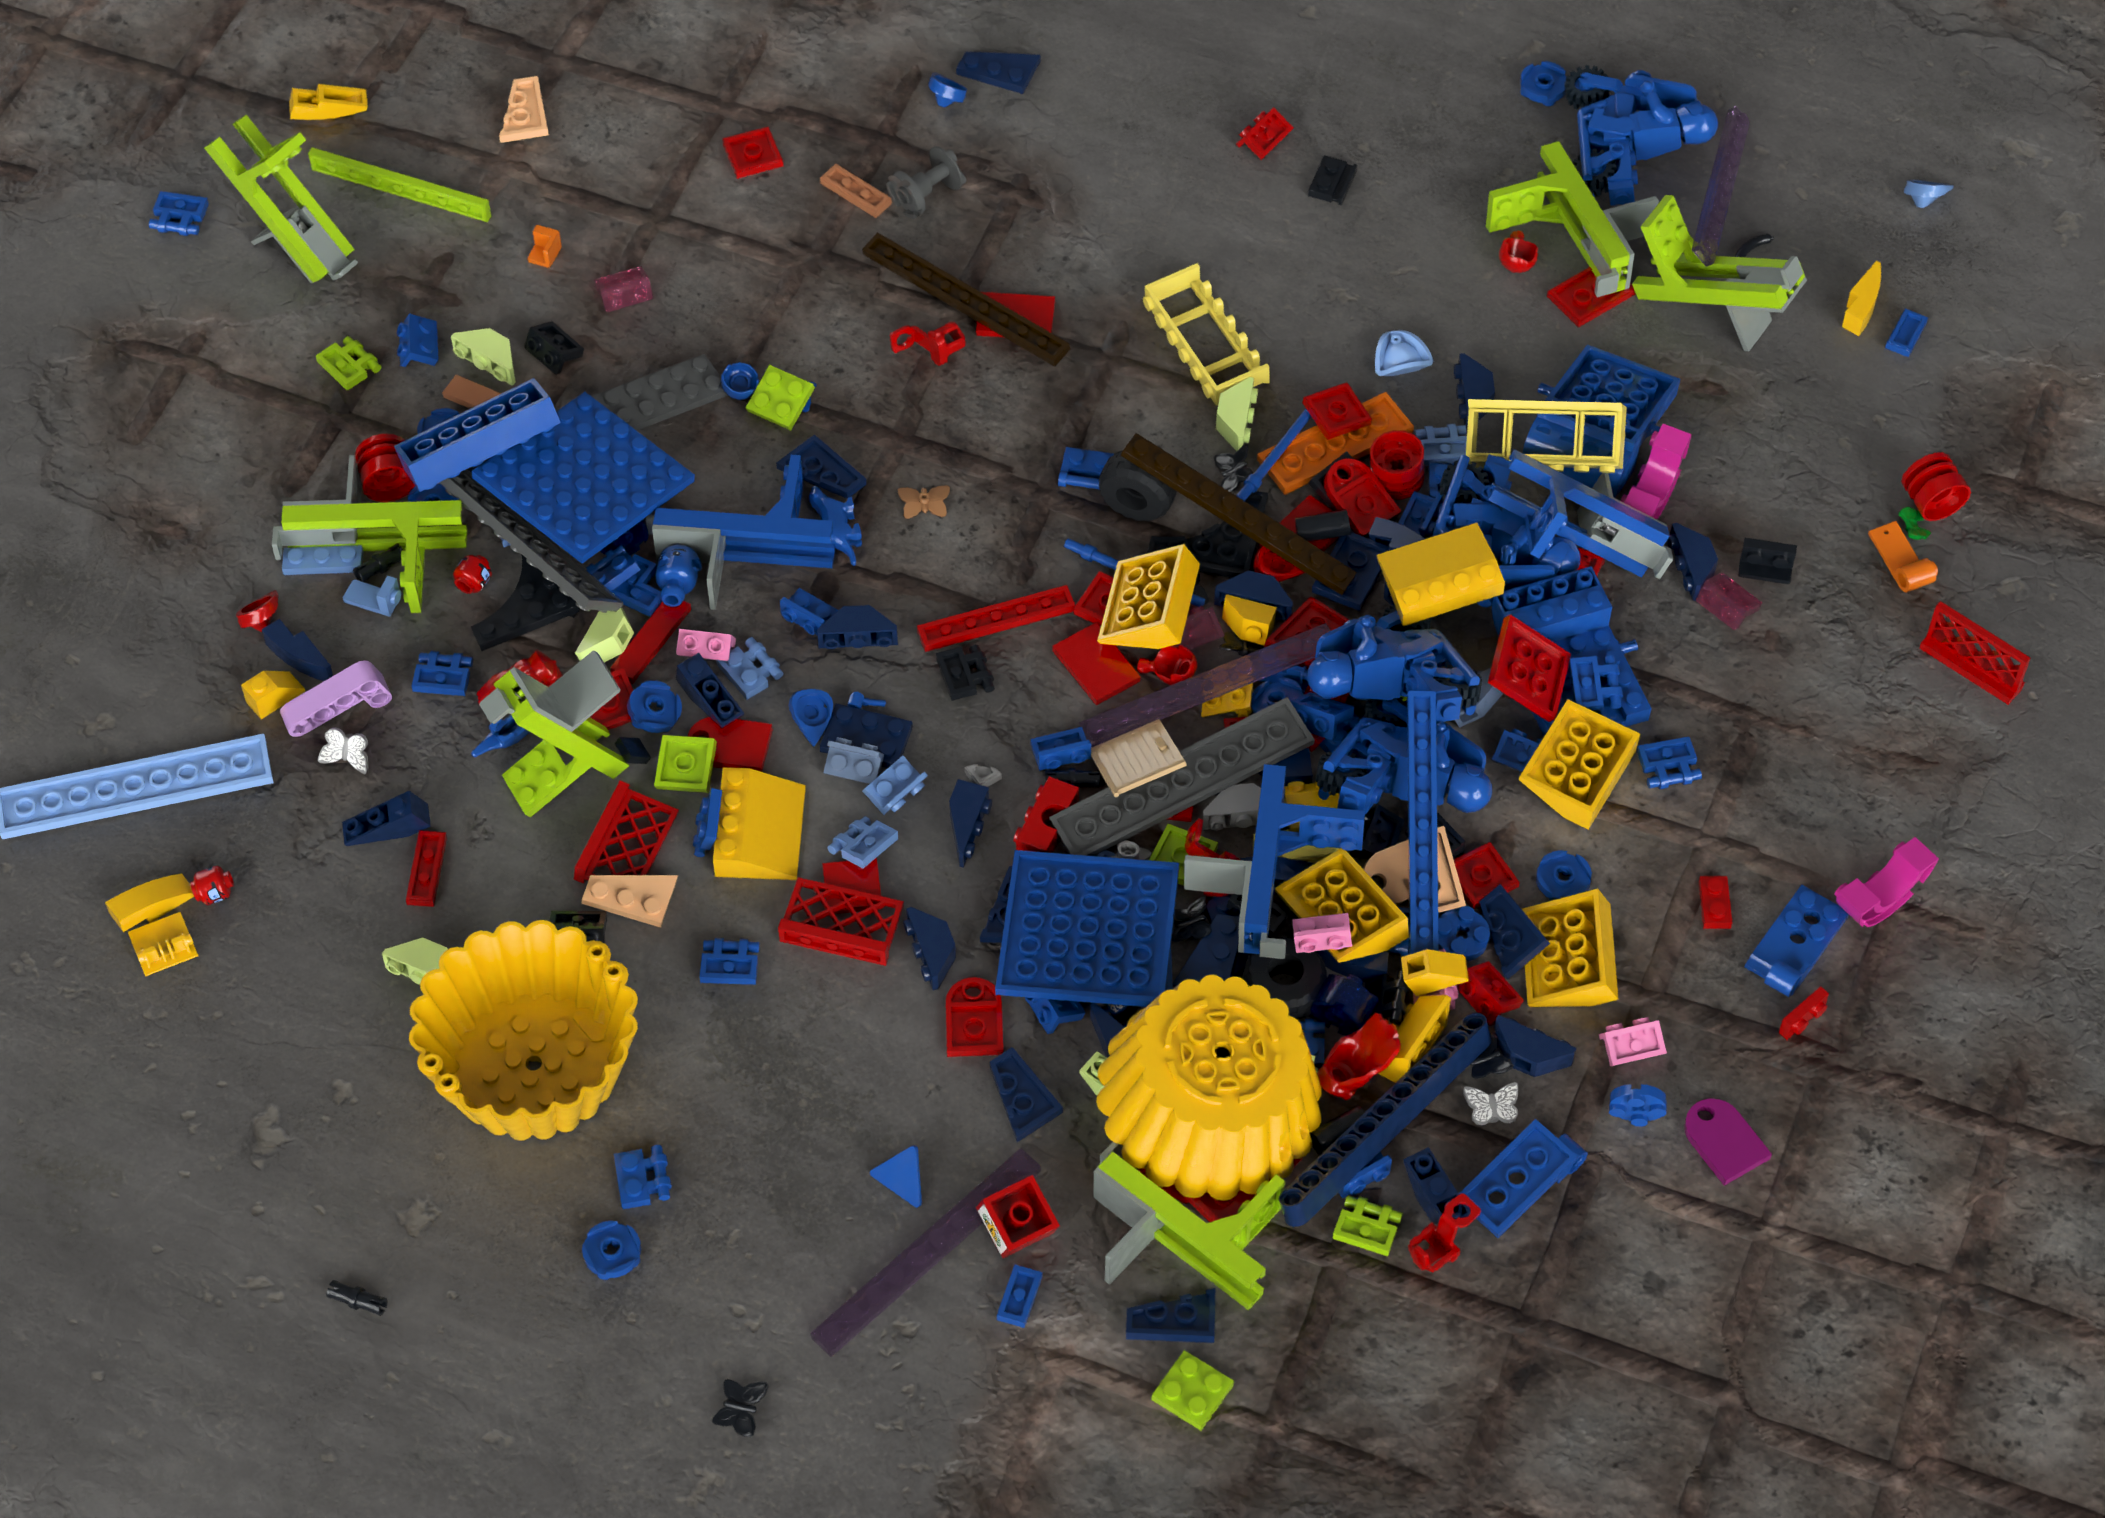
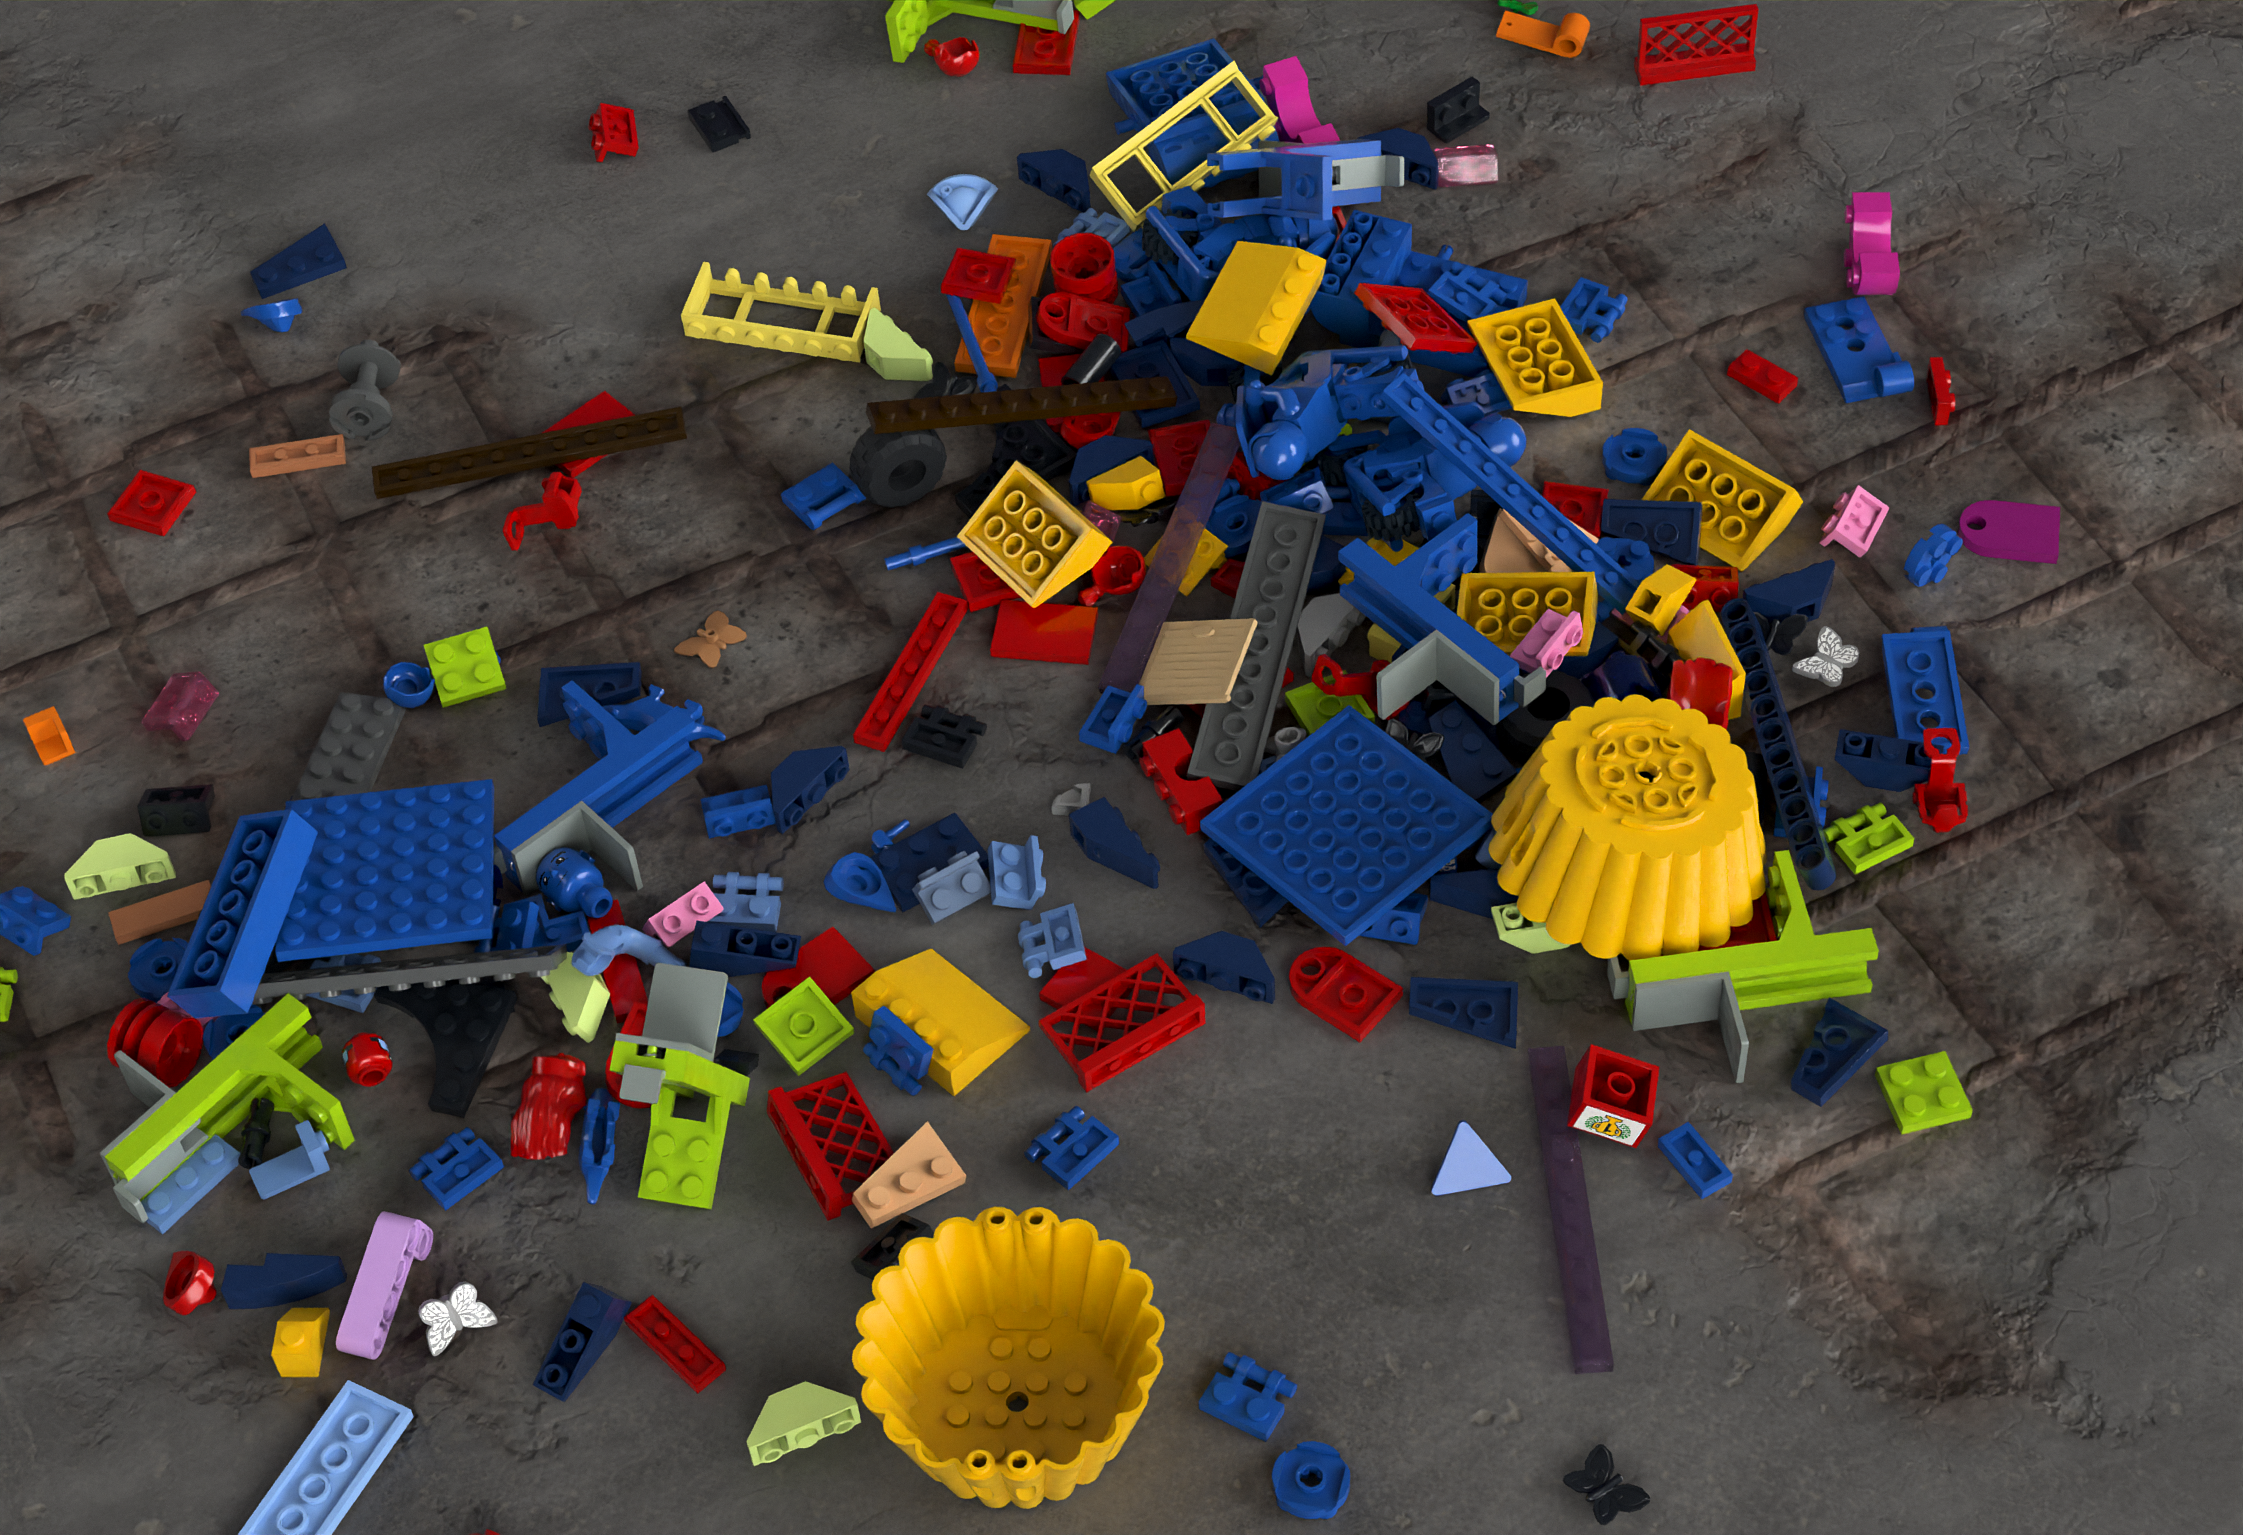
camera: 45 degrees left, 5 degrees down
(631, 621) = (600, 948): none -> medium blue piece

